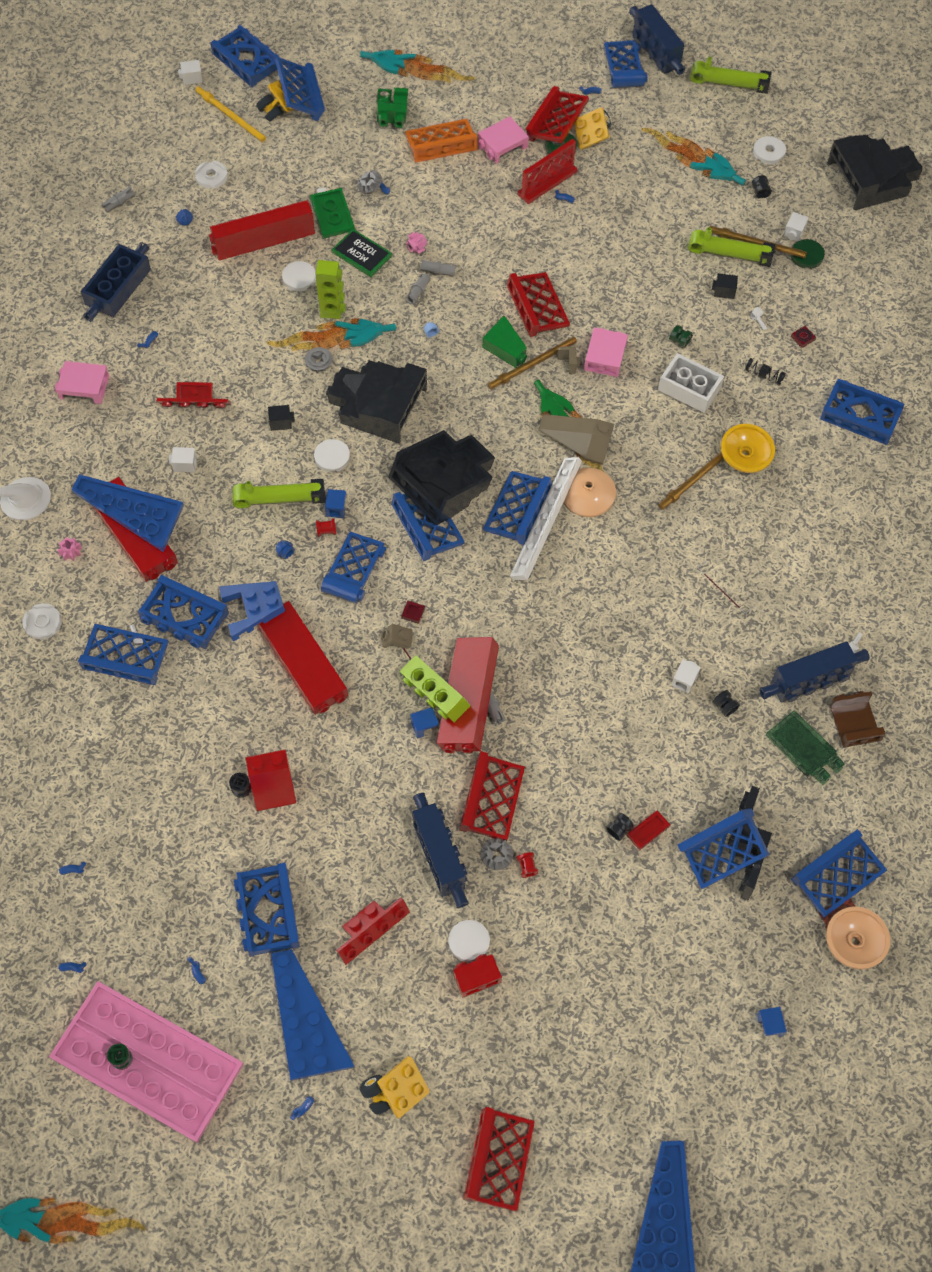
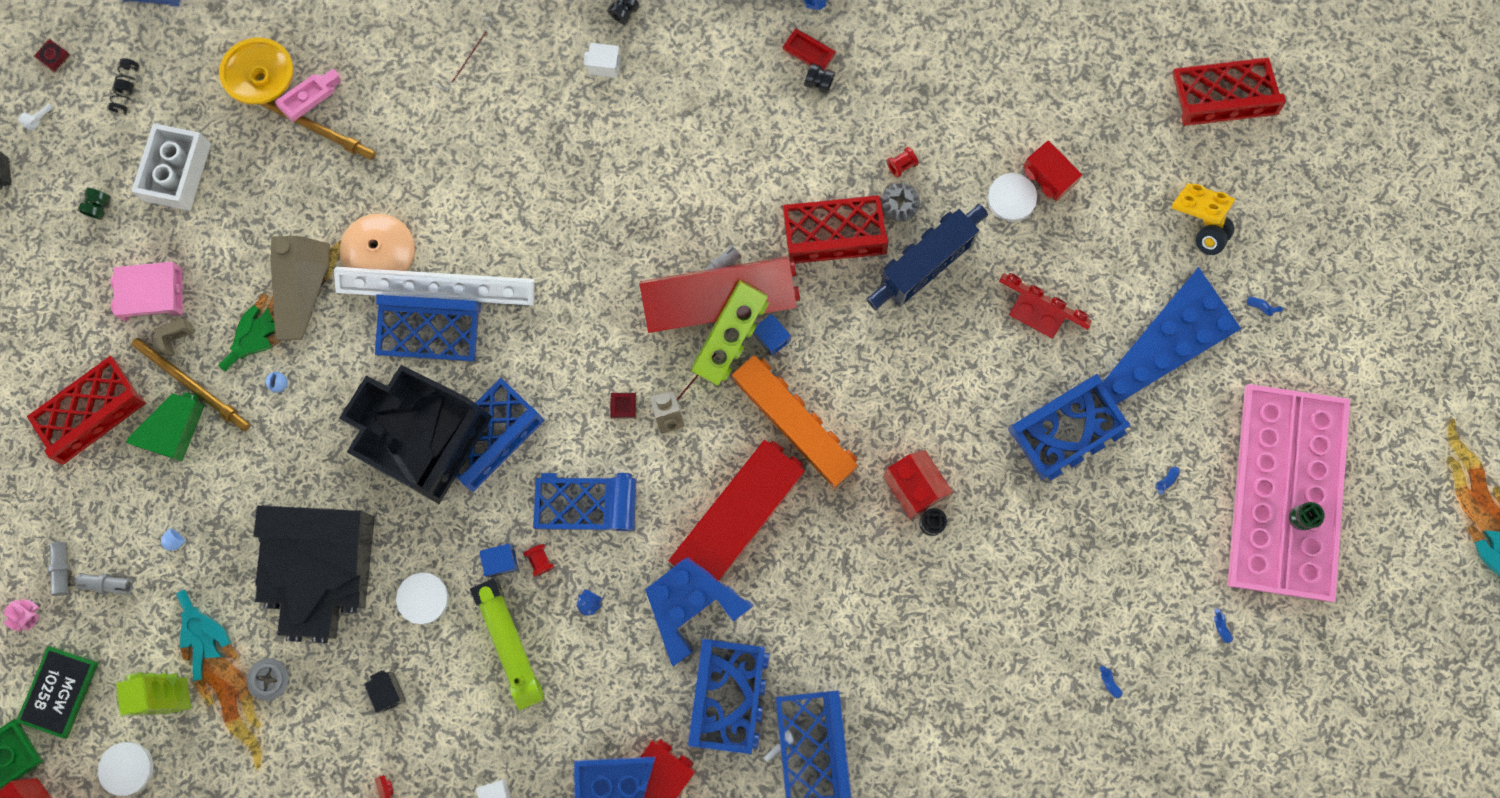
camera: 105 degrees left, 15 degrees up
(353, 717) = (794, 421): none -> orange brick
(514, 410) = (280, 382): none -> light blue hinge
(720, 477) = (308, 94): none -> bright pink hinge

